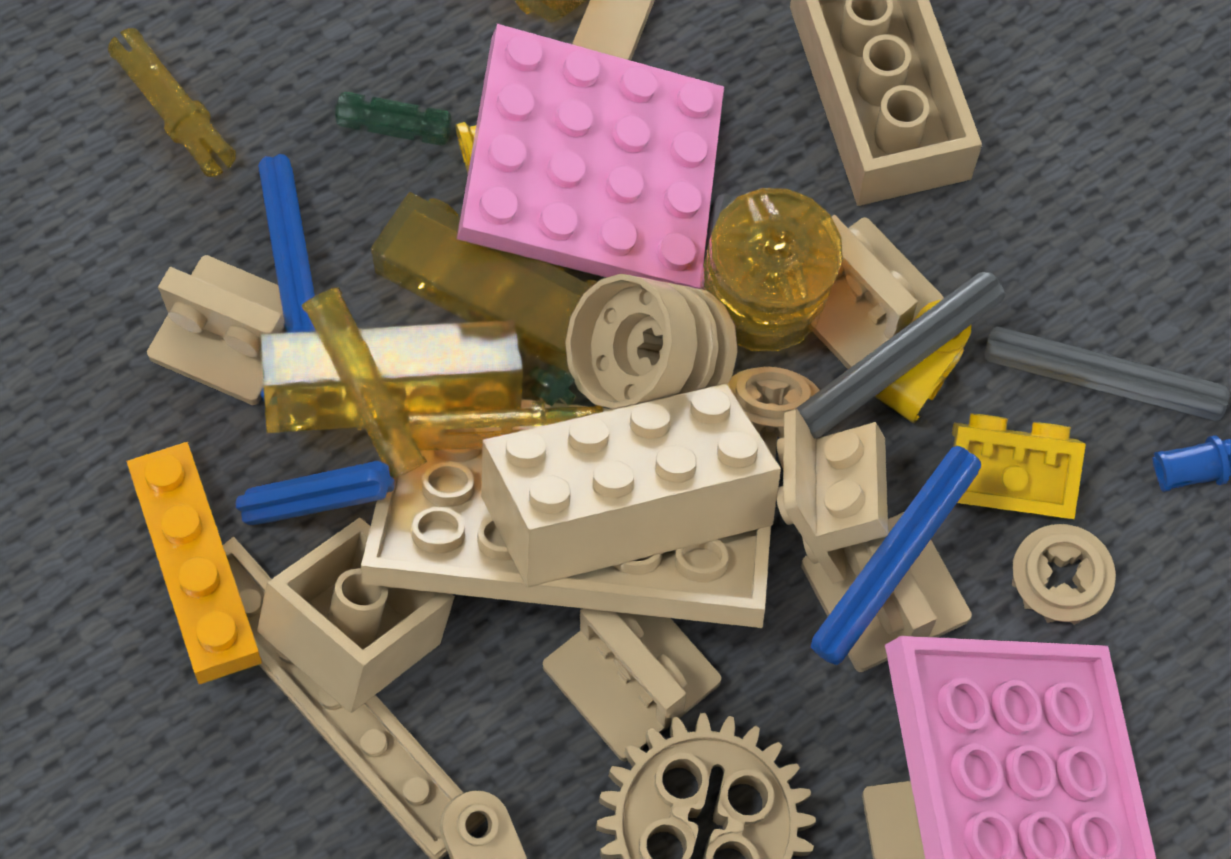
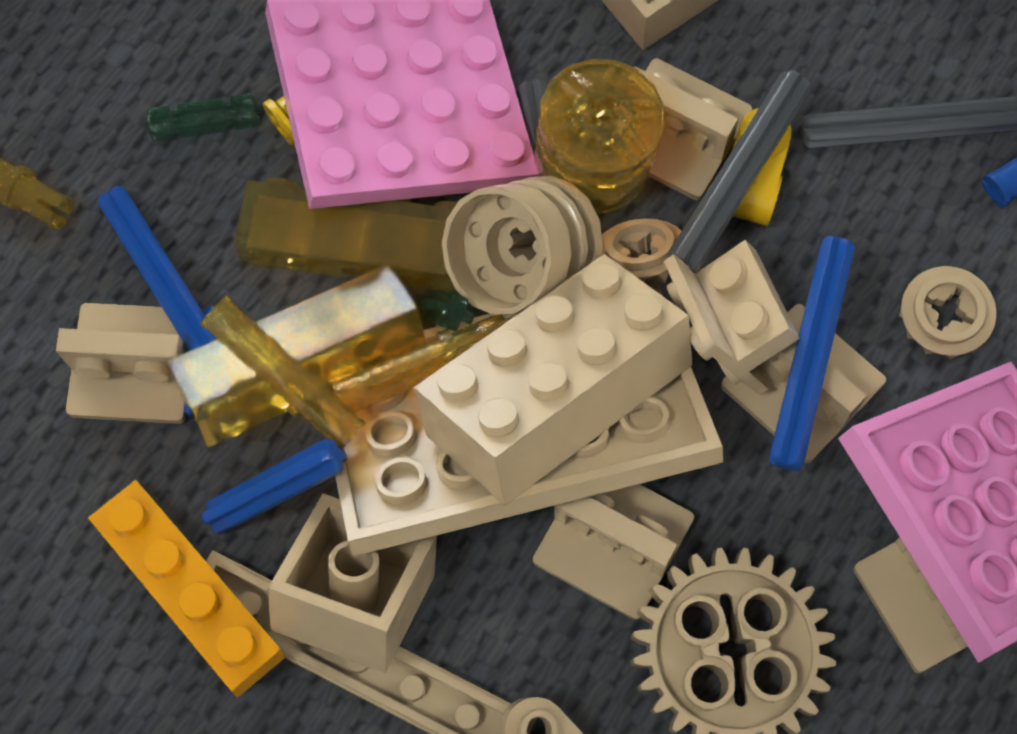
camera: 15 degrees left, 5 degrees up
(1022, 469) = (887, 230): yellow bracket -> none

